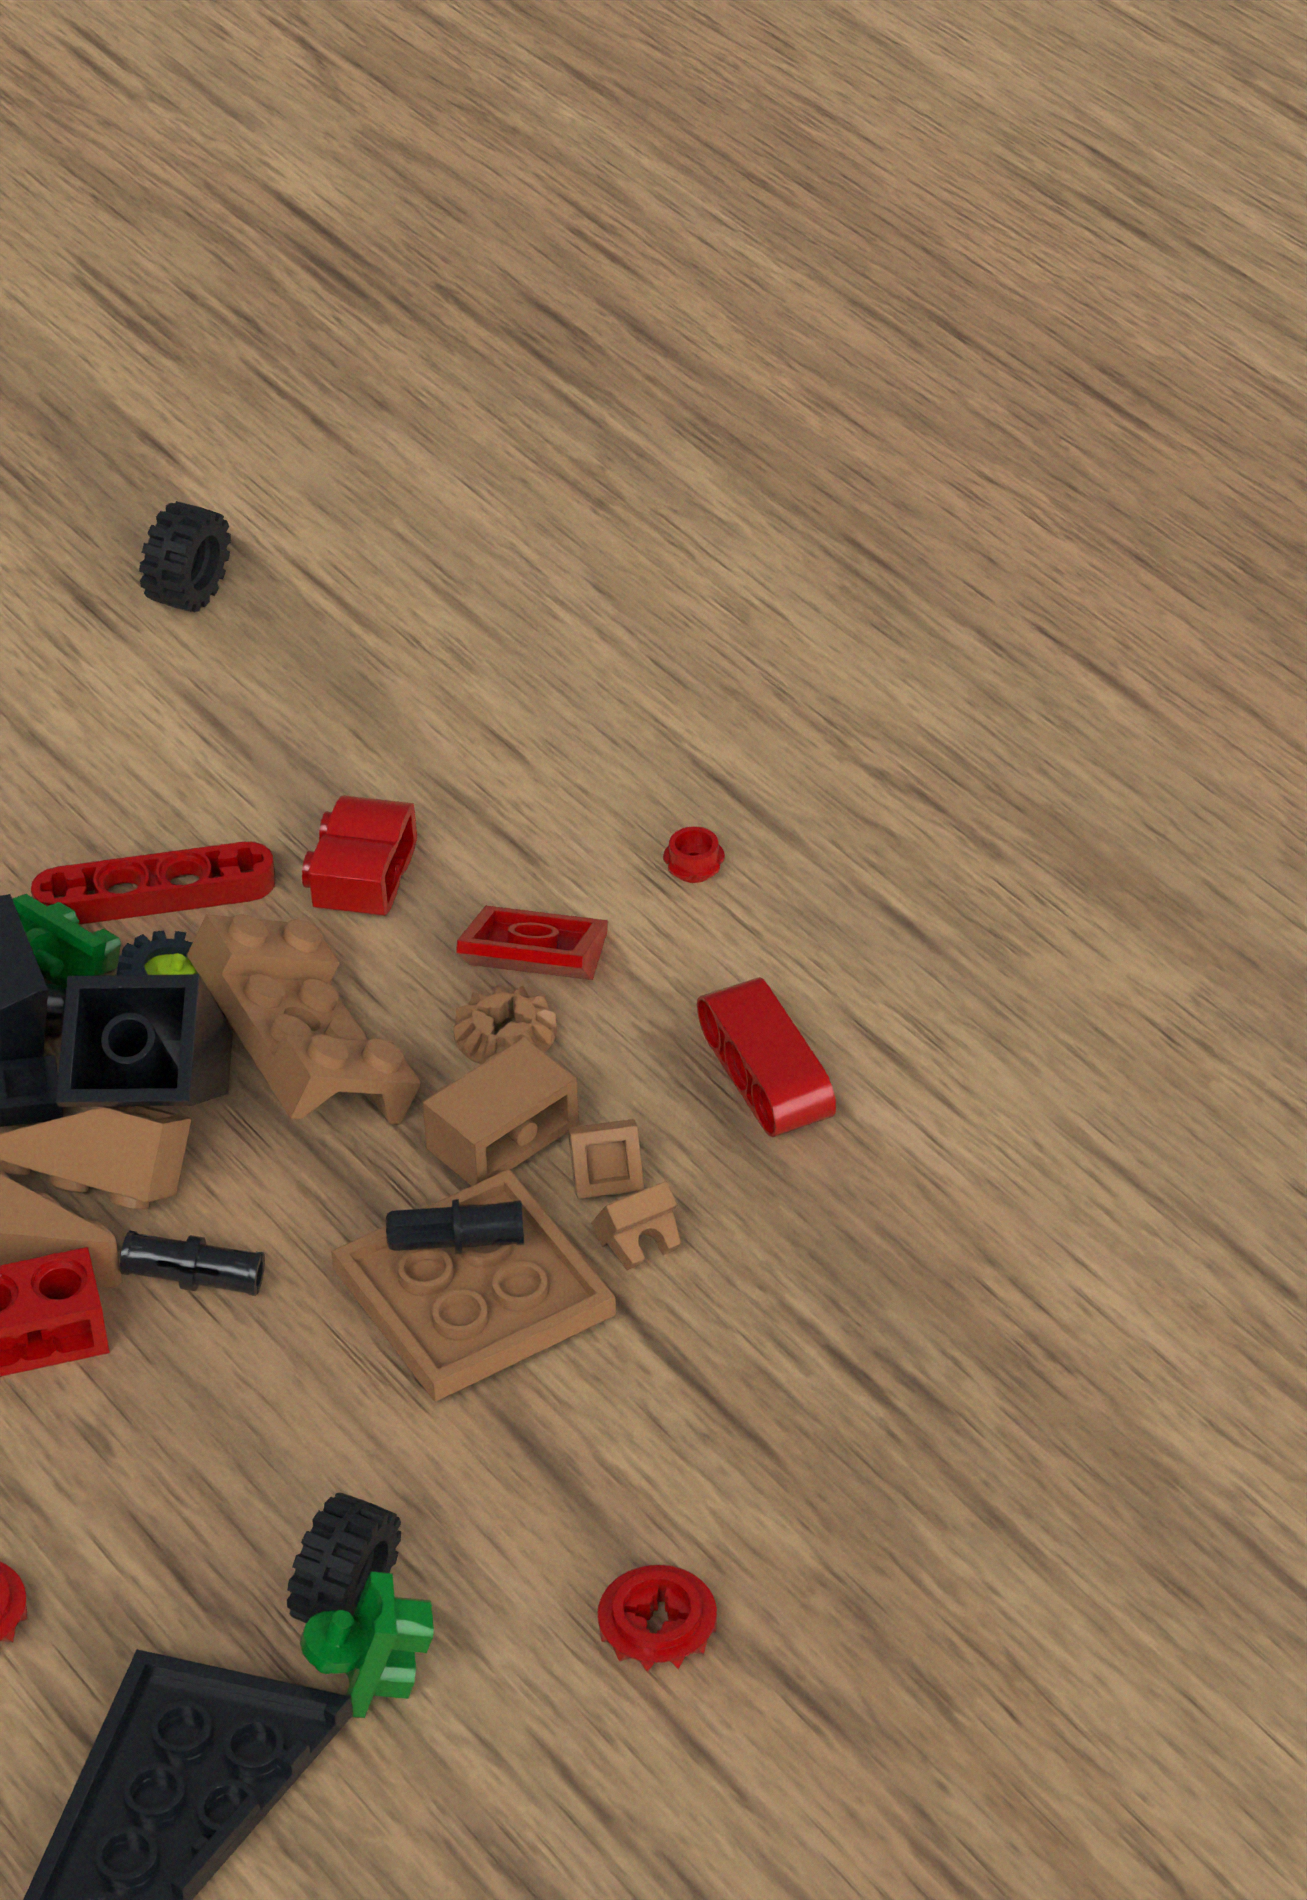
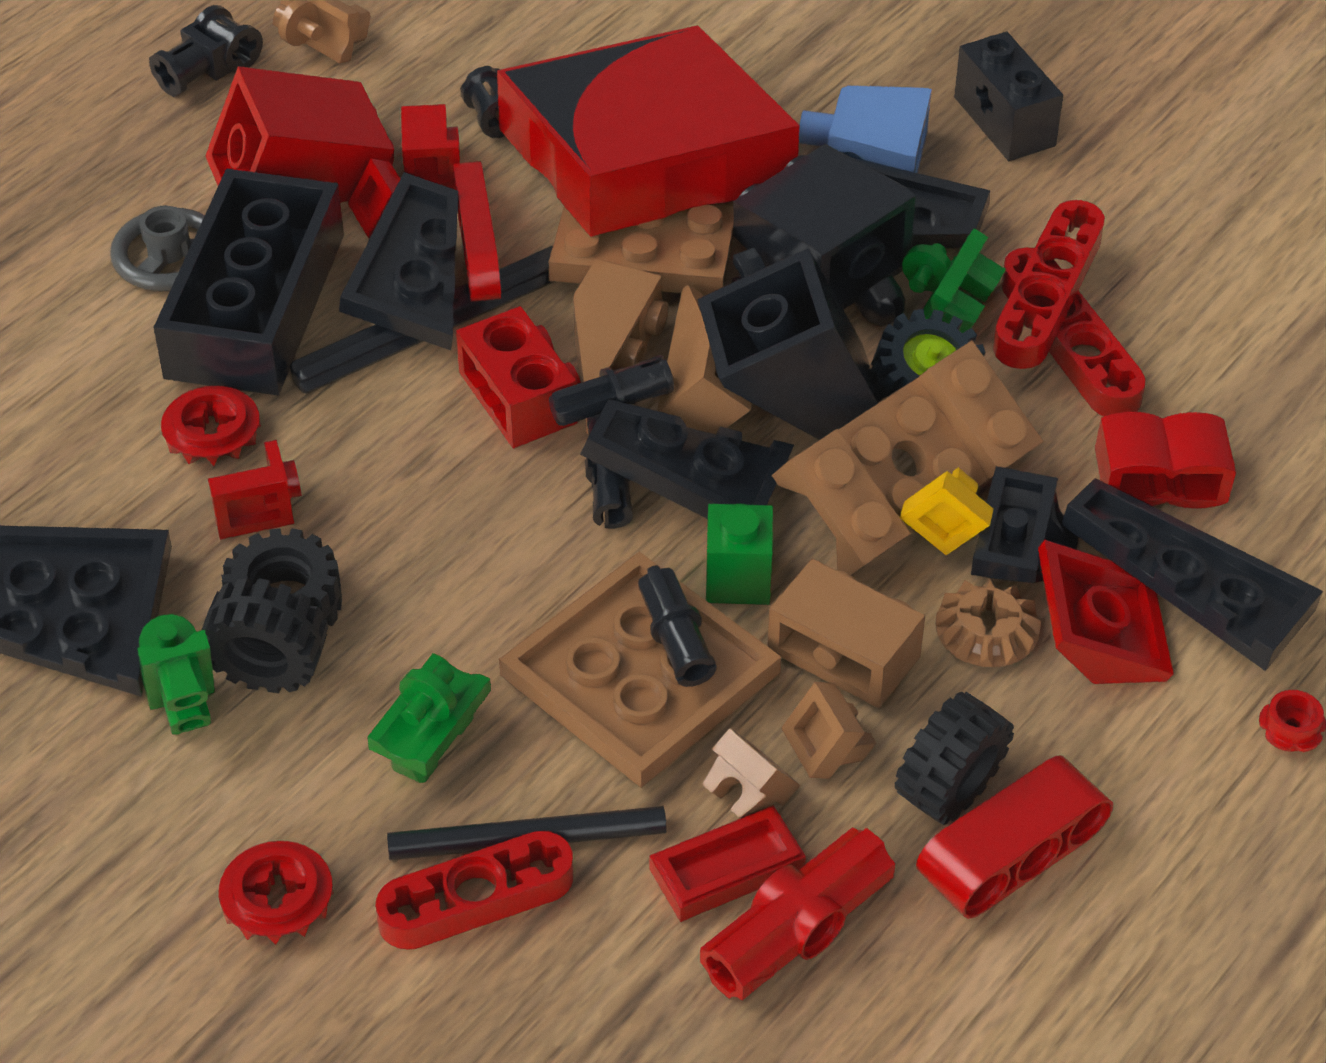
camera: 75 degrees right, 5 degrees up
(110, 1557) = (255, 497): none -> red bracket
(113, 861) = (1048, 282): none -> red beam
(126, 1214) = (626, 385): none -> black axle
(232, 1534) = (290, 559): none -> black tyre
(233, 1186) = (684, 462): none -> black wing
(363, 1173) = (739, 554): none -> green brick
(386, 1004) = (947, 511): none -> yellow tile
(406, 976) = (1021, 520): none -> black slope
(493, 1447) = (427, 716): none -> green hips
(508, 866) = (1209, 580): none -> black wing
(641, 1414) = (570, 827): none -> black bar
(684, 1063) = (954, 757): none -> black tyre
(690, 1482) = (490, 863): none -> red beam
(723, 1269) = (724, 862): none -> red tile
(806, 1219) = (797, 913): none -> red piece

